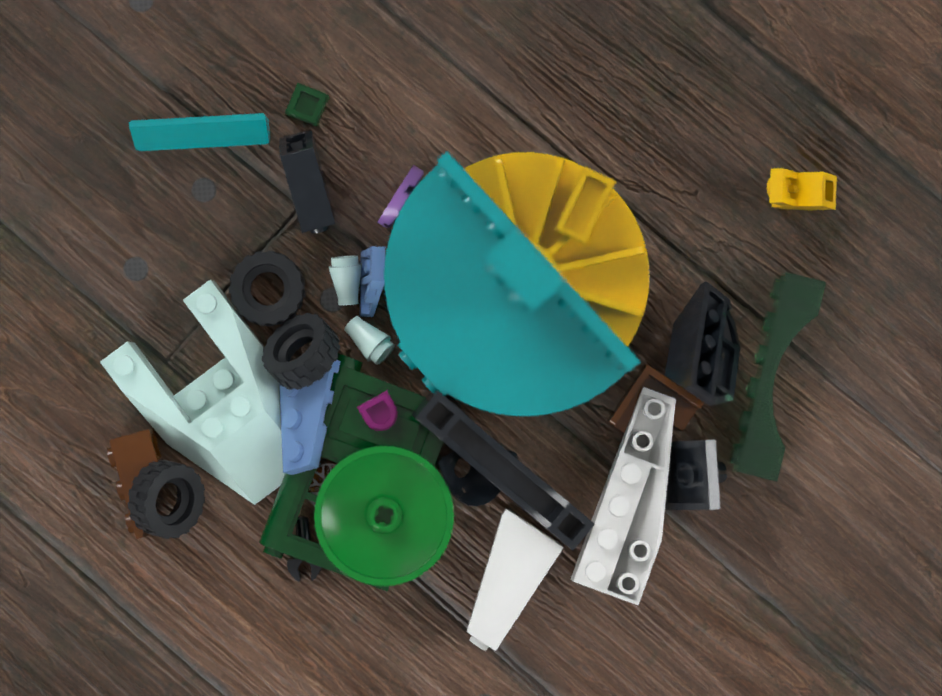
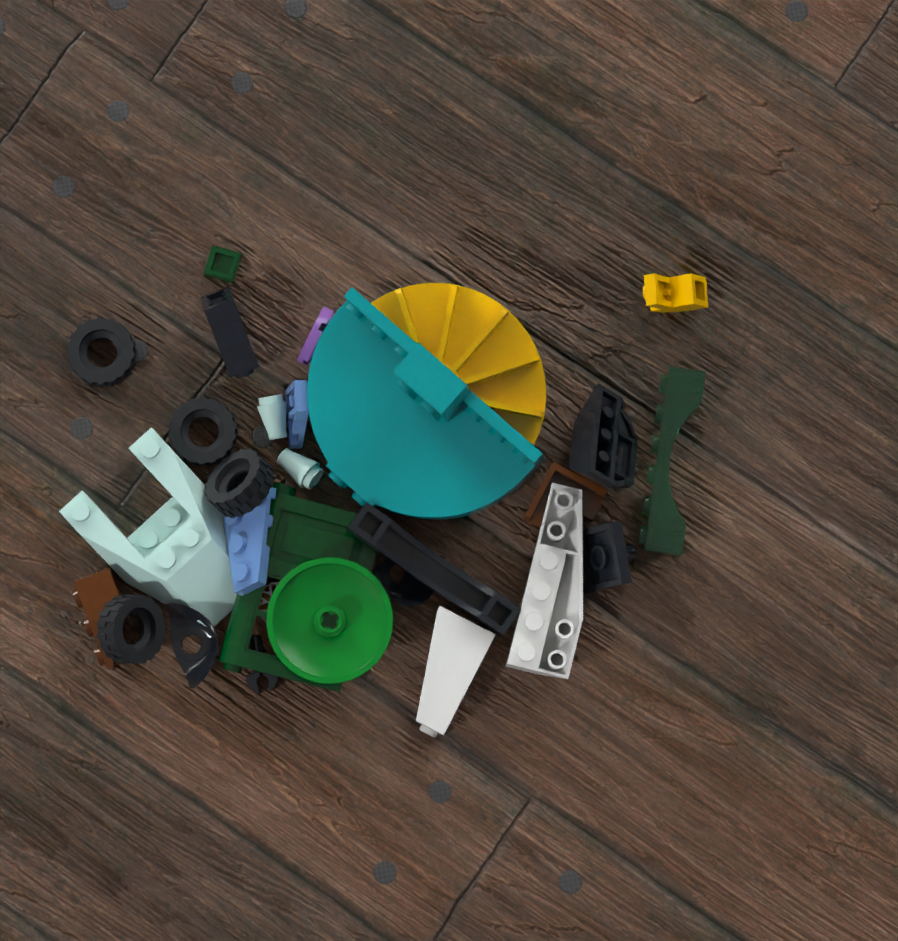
camera: 10 degrees left, 5 degrees down
(146, 170) = (97, 329): none -> black tyre
(200, 132) = (128, 298): teal slope -> none
(233, 542) = (183, 623): none -> black piece
(379, 412) = (315, 530): magenta tile -> none
(585, 205) = (480, 323): yellow tile -> none

